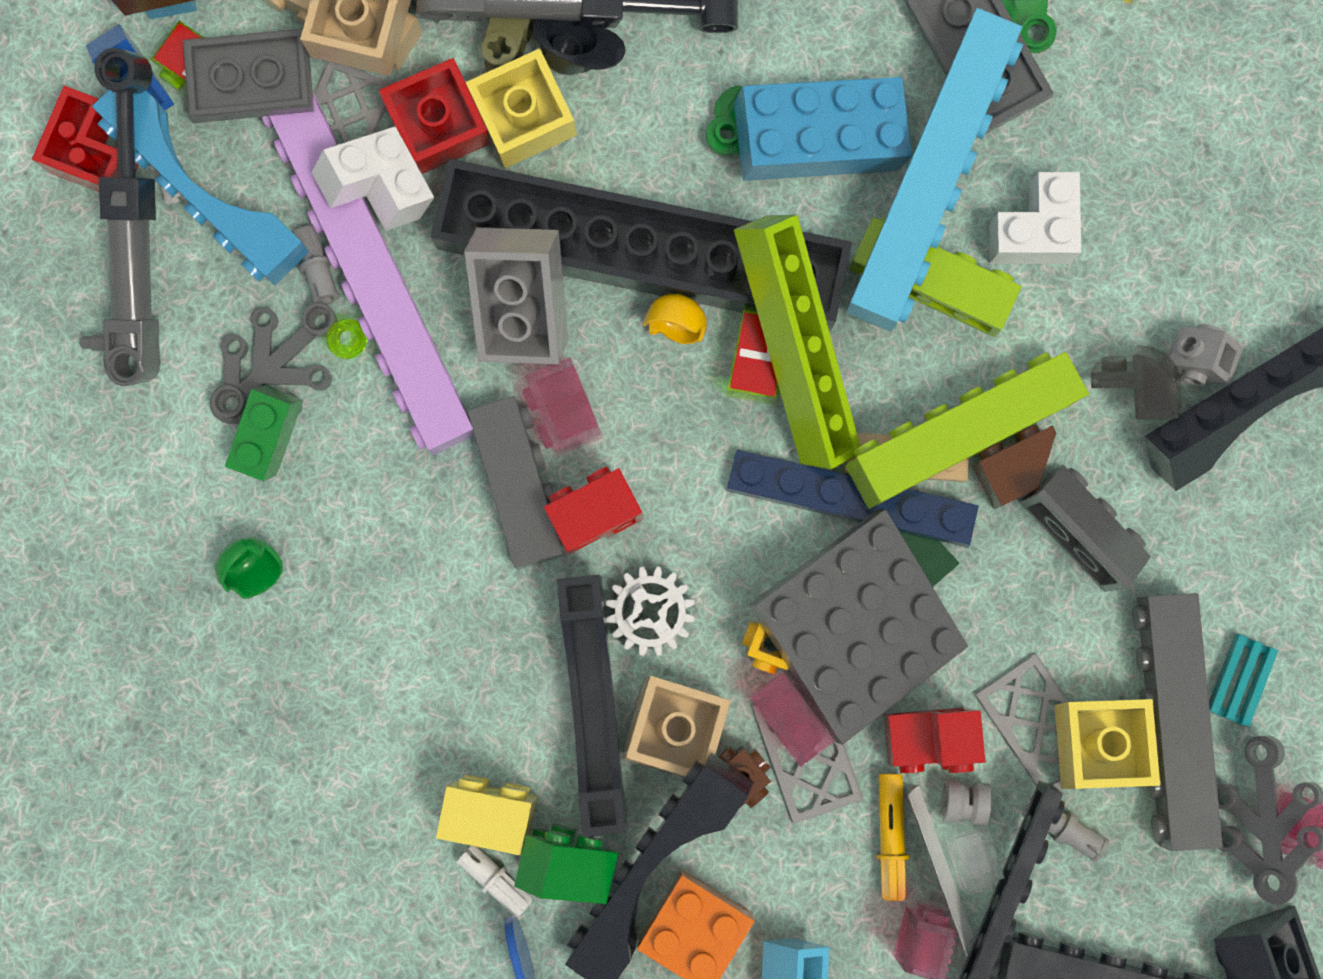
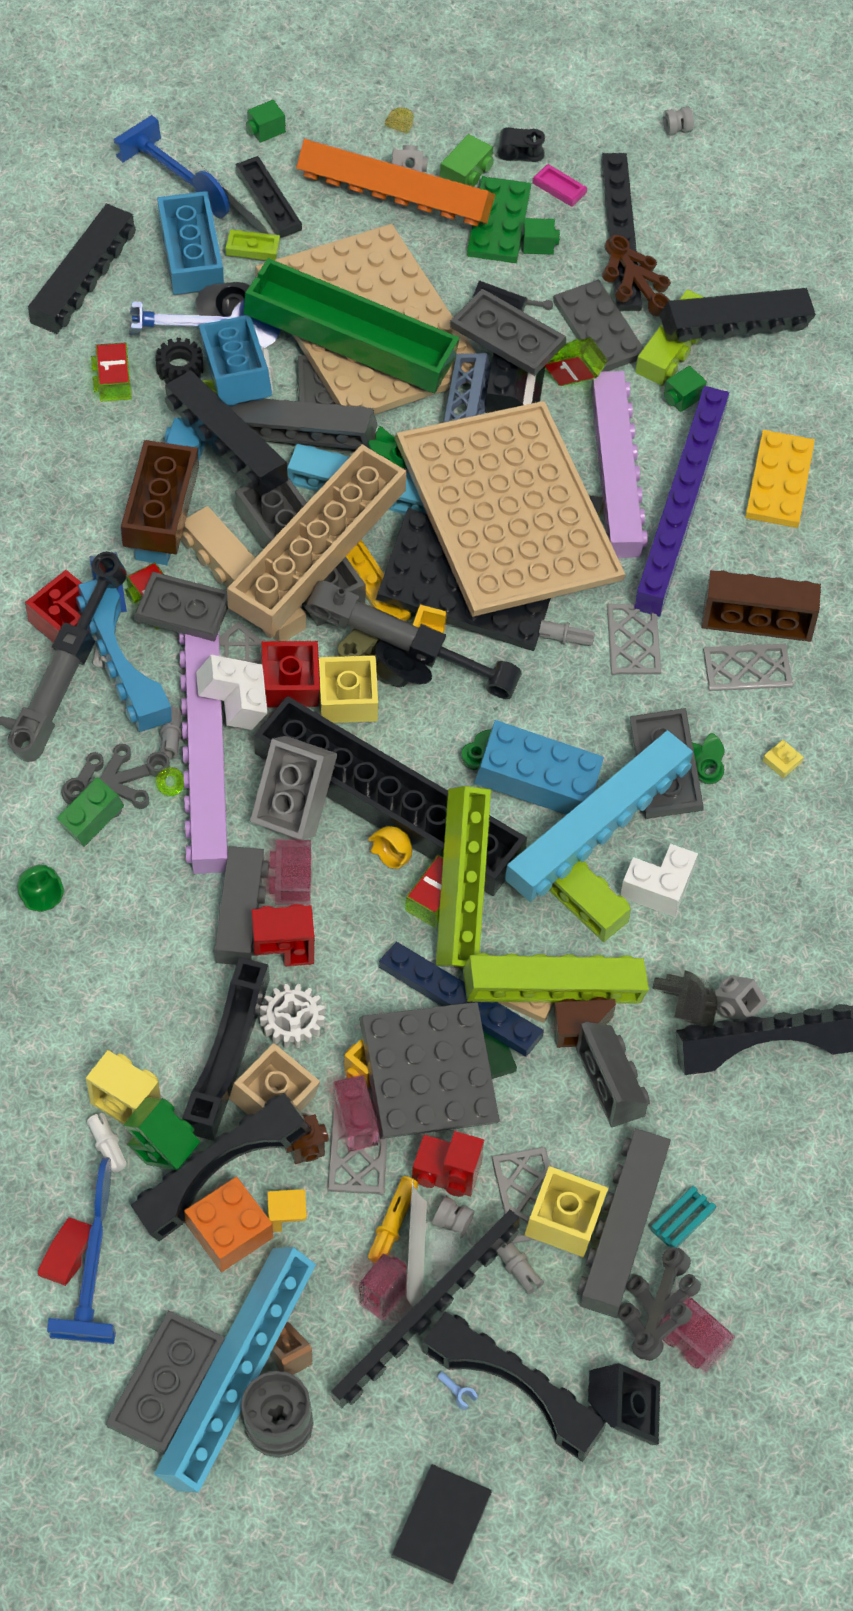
camera: 15 degrees right, 25 degrees down
(758, 880) = (286, 1207): none -> yellow panel

